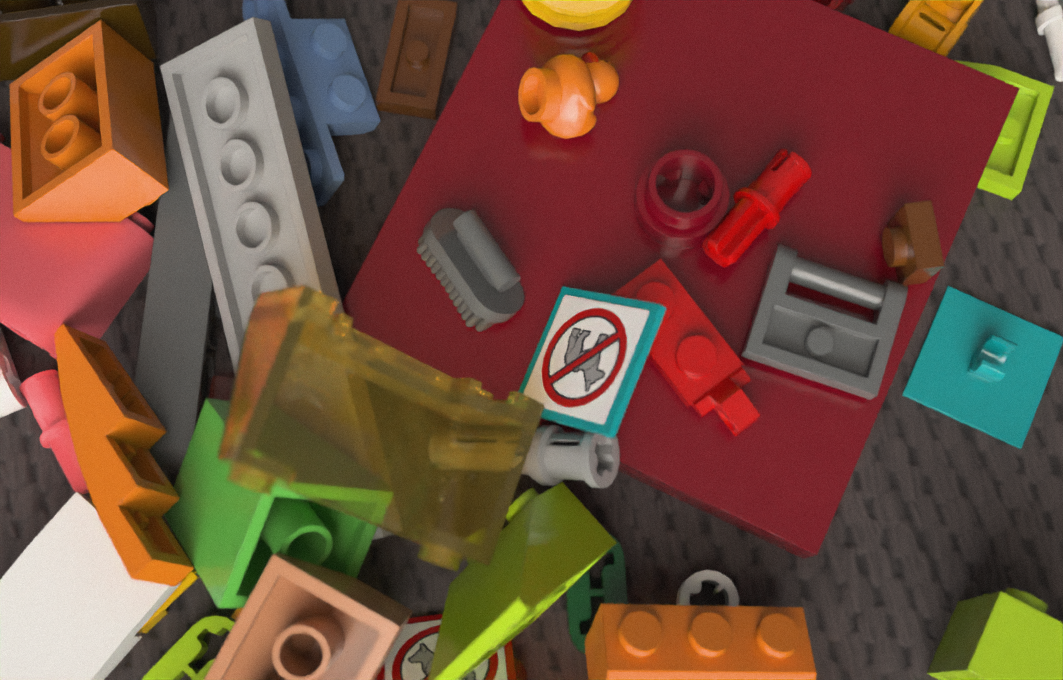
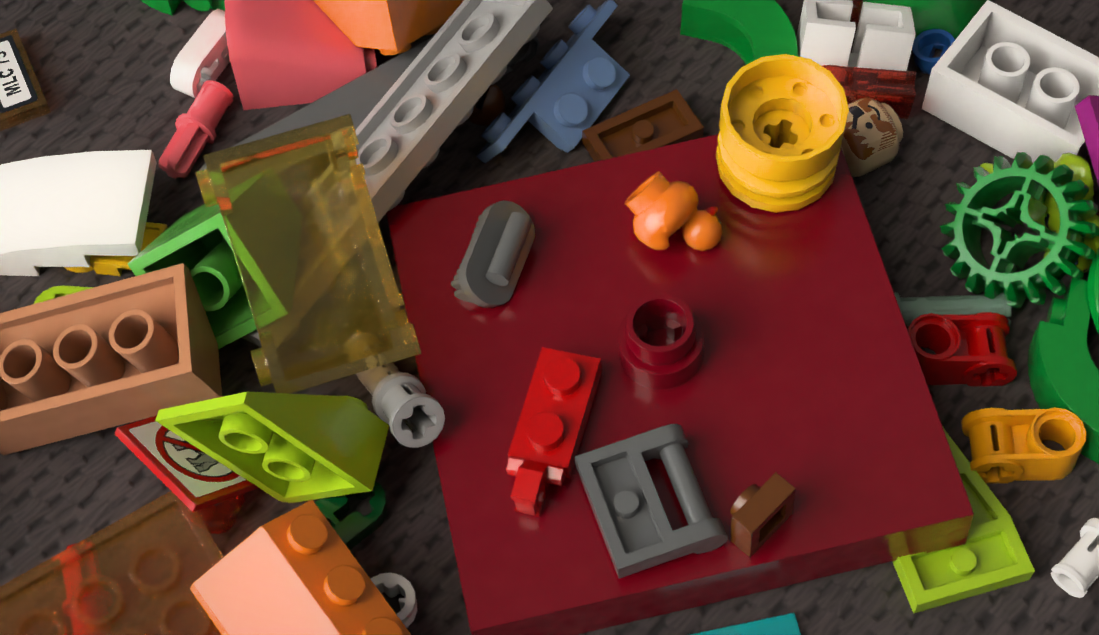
camera: 55 degrees right, 15 degrees down
(112, 441) = (165, 172): orange slope -> none
(591, 358) = (480, 362): piece -> none
(757, 207) = (694, 391): red axle -> none

